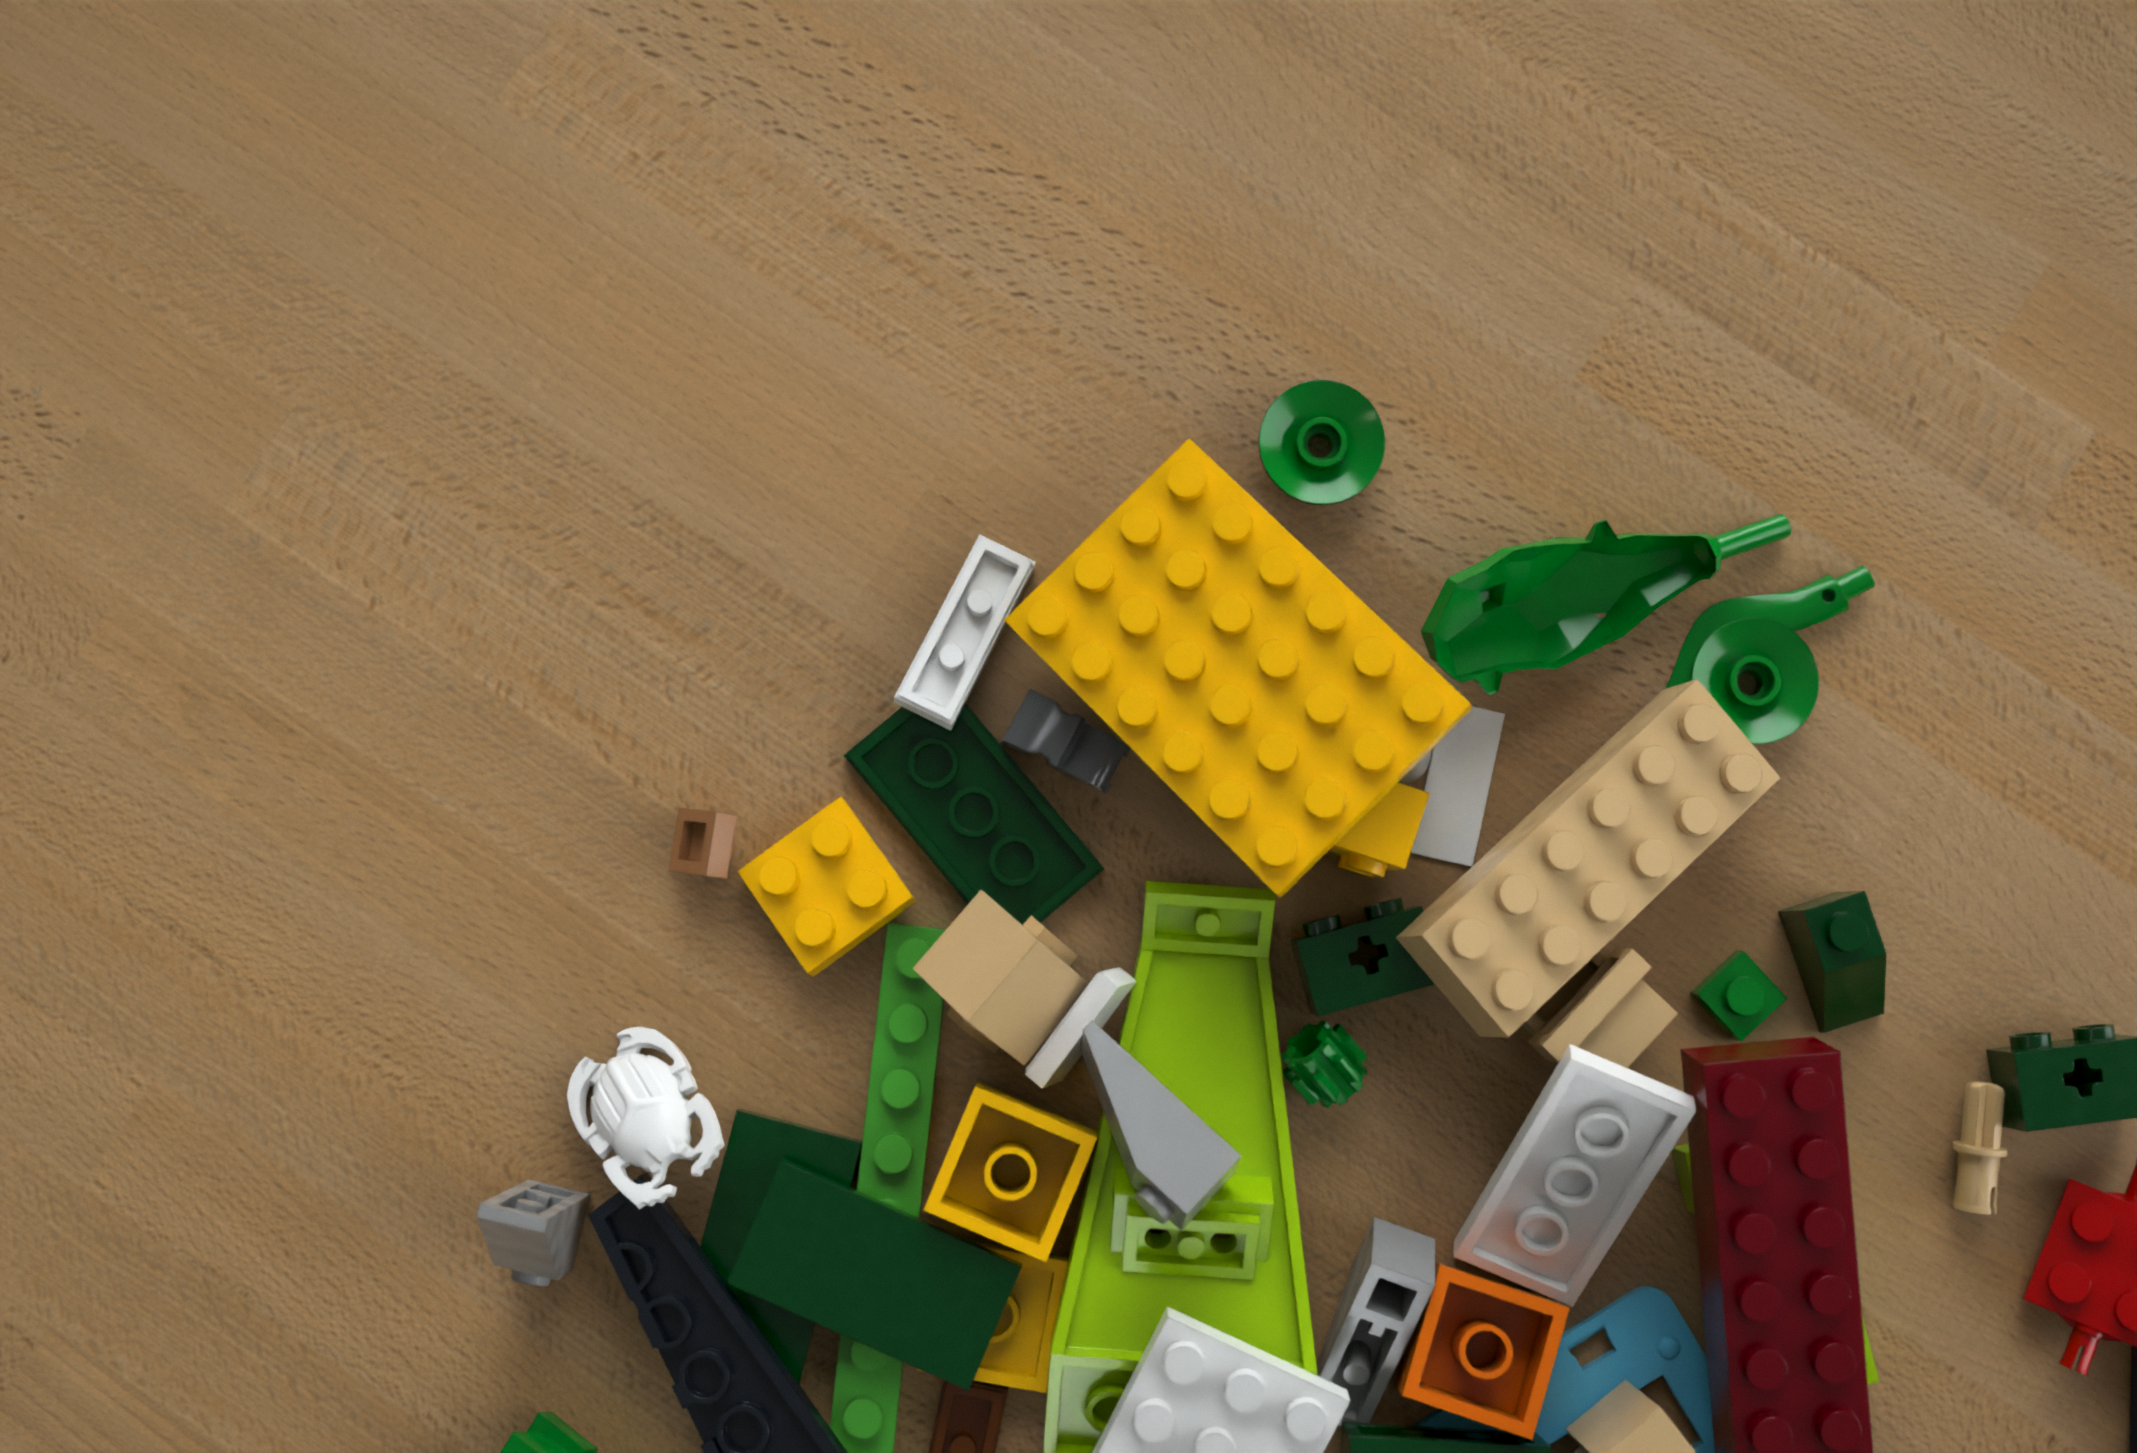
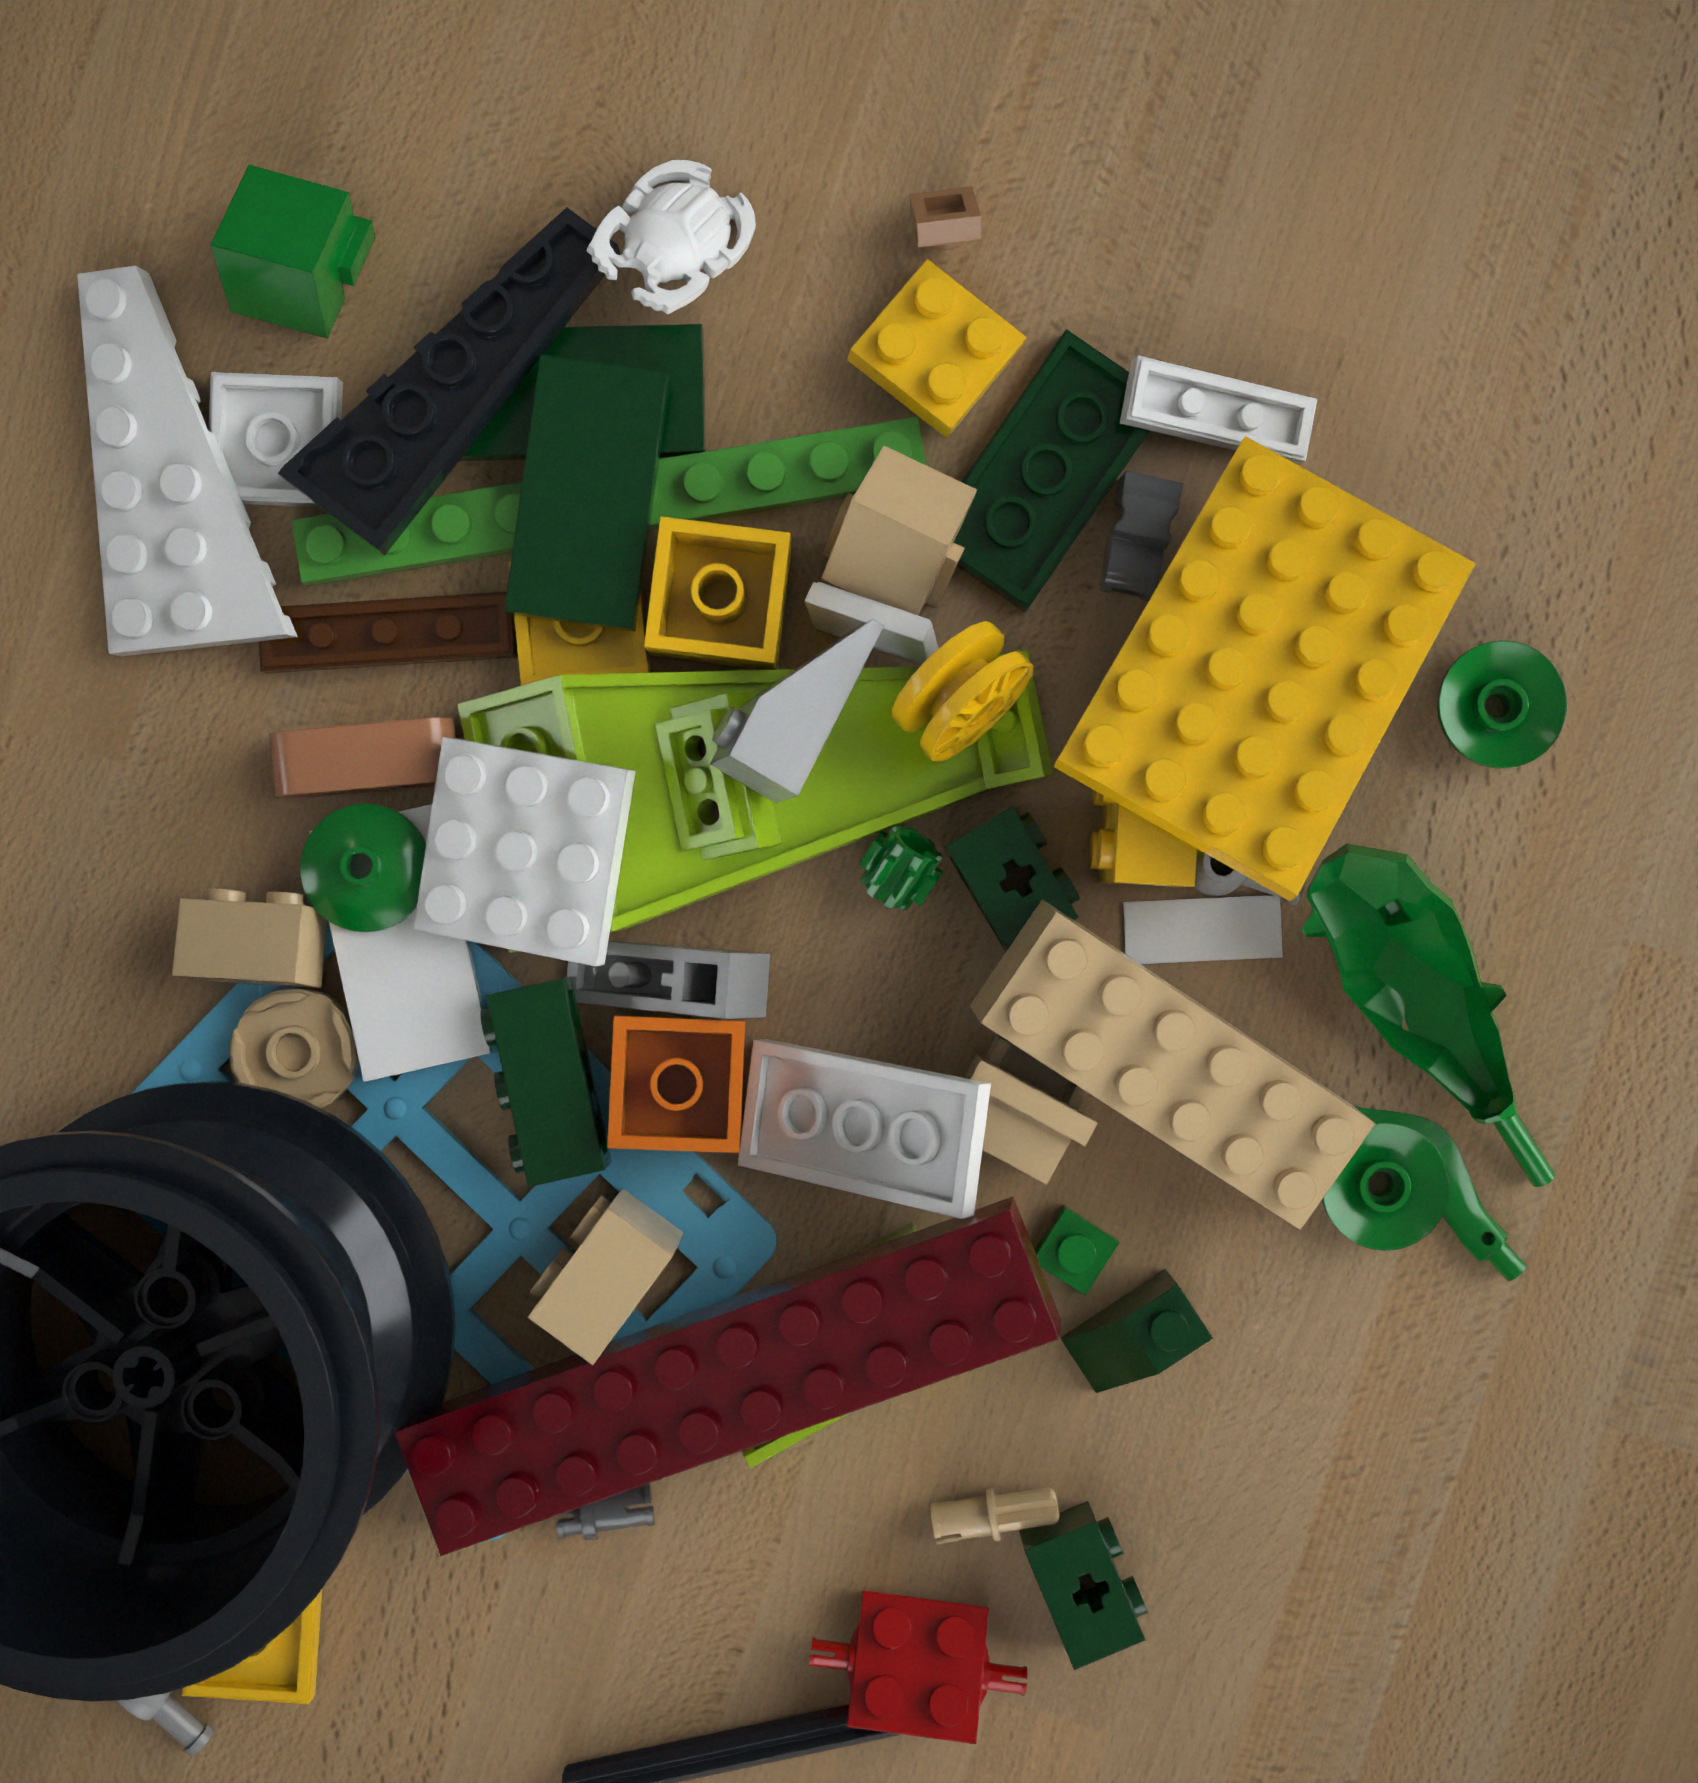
camera: 80 degrees right, 5 degrees up
(534, 1230) = (538, 156): light grey slope -> none
(1177, 962) = (961, 691): none -> yellow wheel

